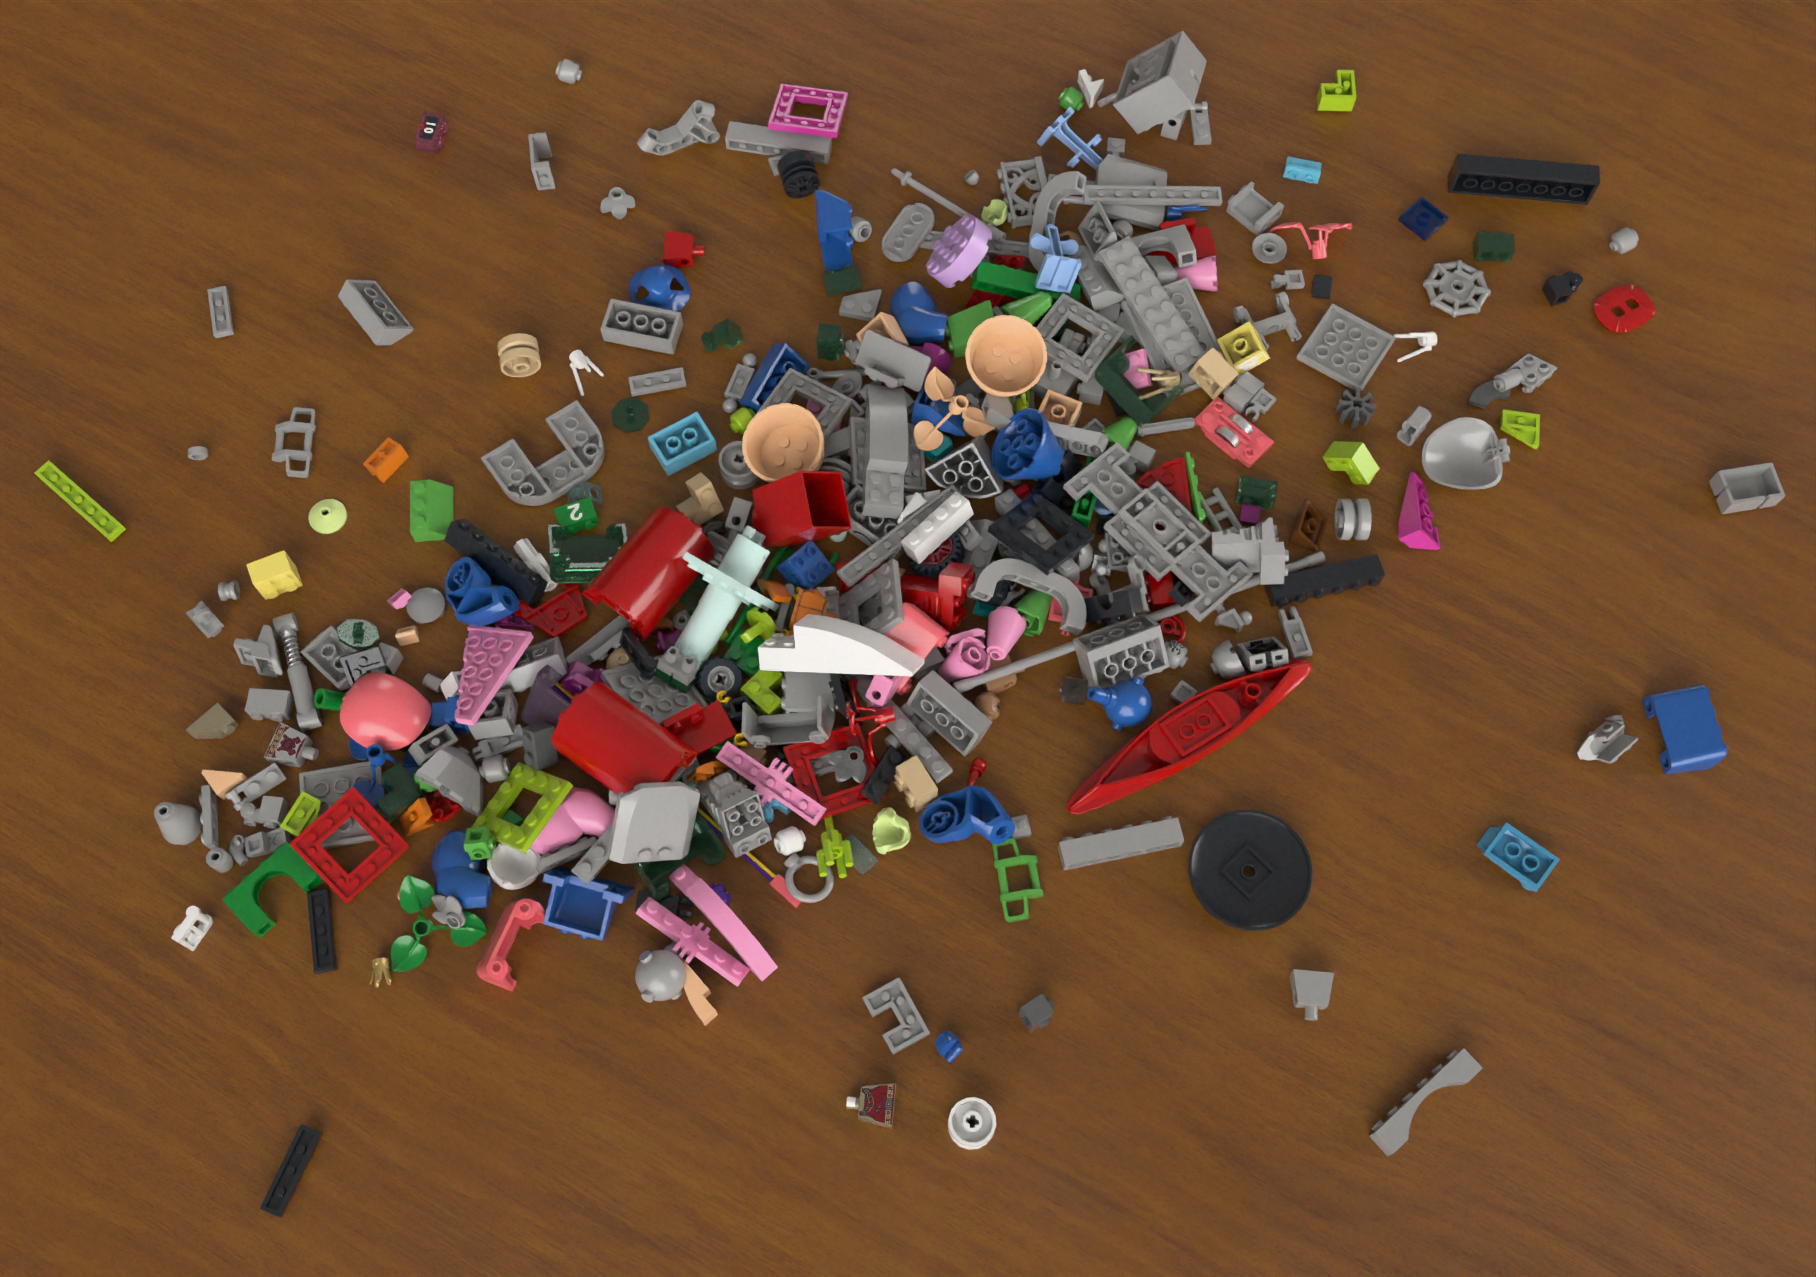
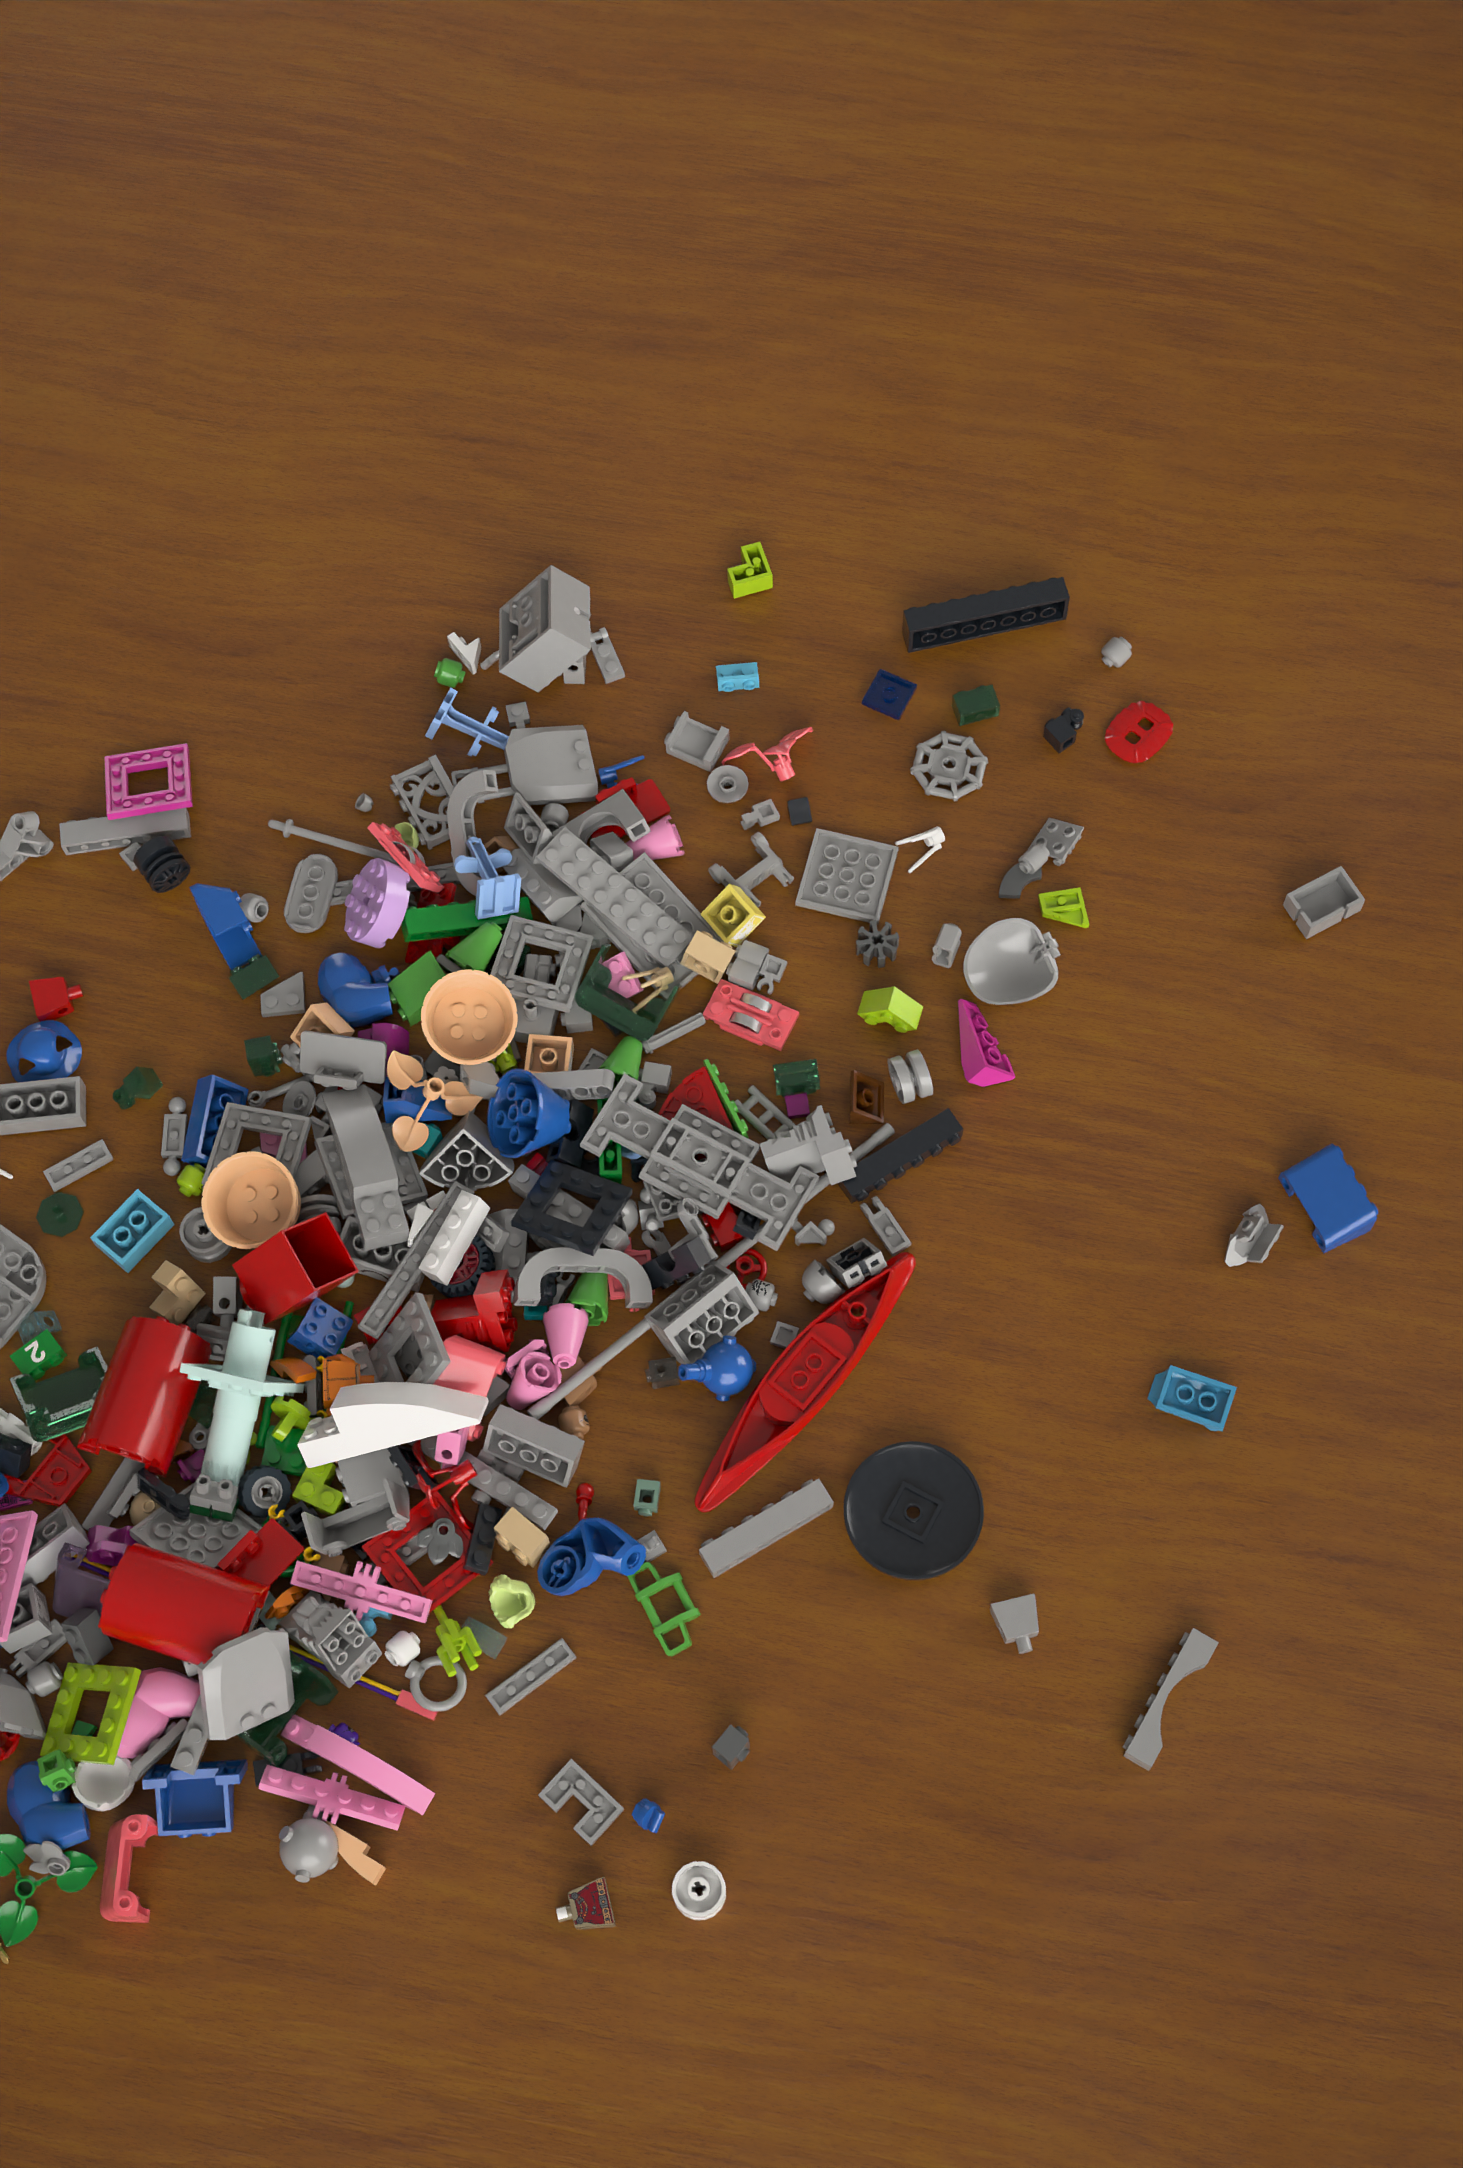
camera: 15 degrees left, 0 degrees up
(886, 899) = (530, 1676): none -> light grey tile
(944, 309) = (382, 975): none -> blue piece
(993, 222) = (402, 853): none -> coral piece
(1031, 780) = (645, 1489): none -> sand green brick
(1152, 195) = (576, 765): light grey plate -> none

